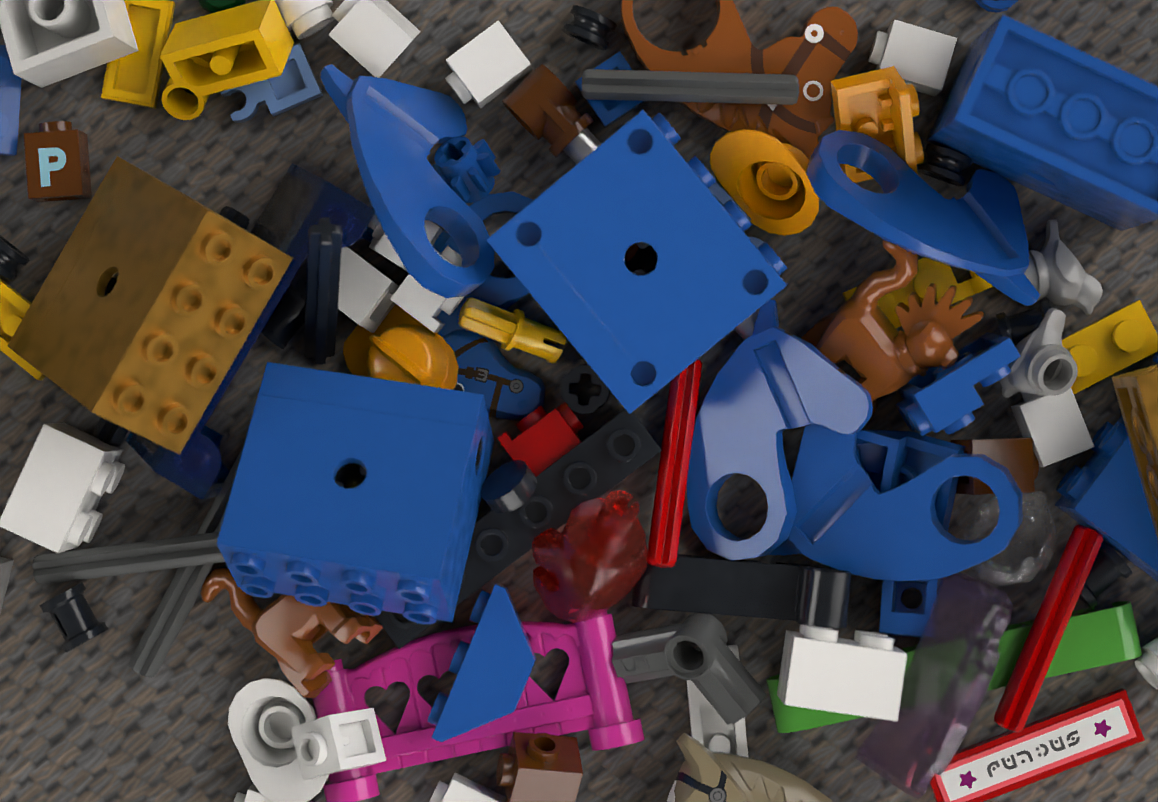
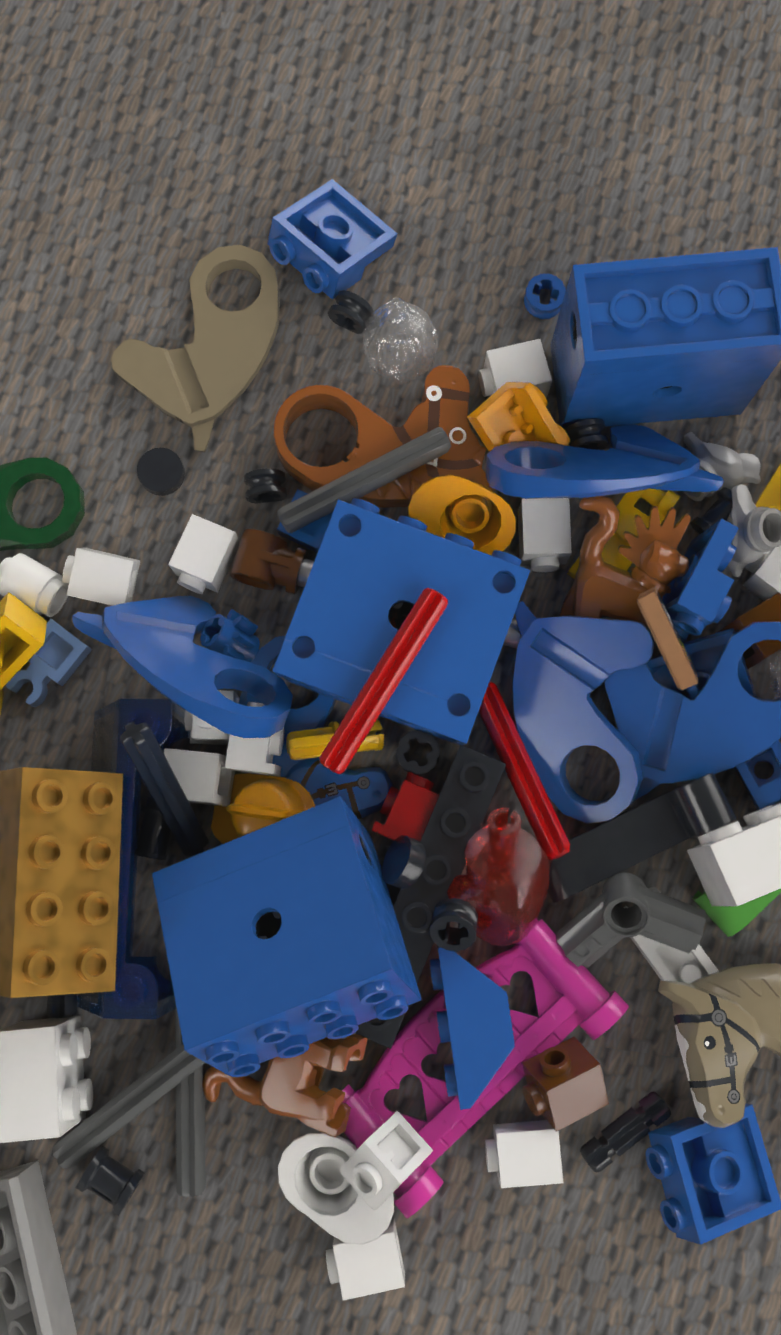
camera: 30 degrees left, 10 degrees down
(513, 582) = (450, 937): none -> black bush
(585, 311) = (383, 681): none -> red axle
(837, 247) = (544, 533): none -> white brick
(886, 422) = (667, 638): none -> medium nougat tile

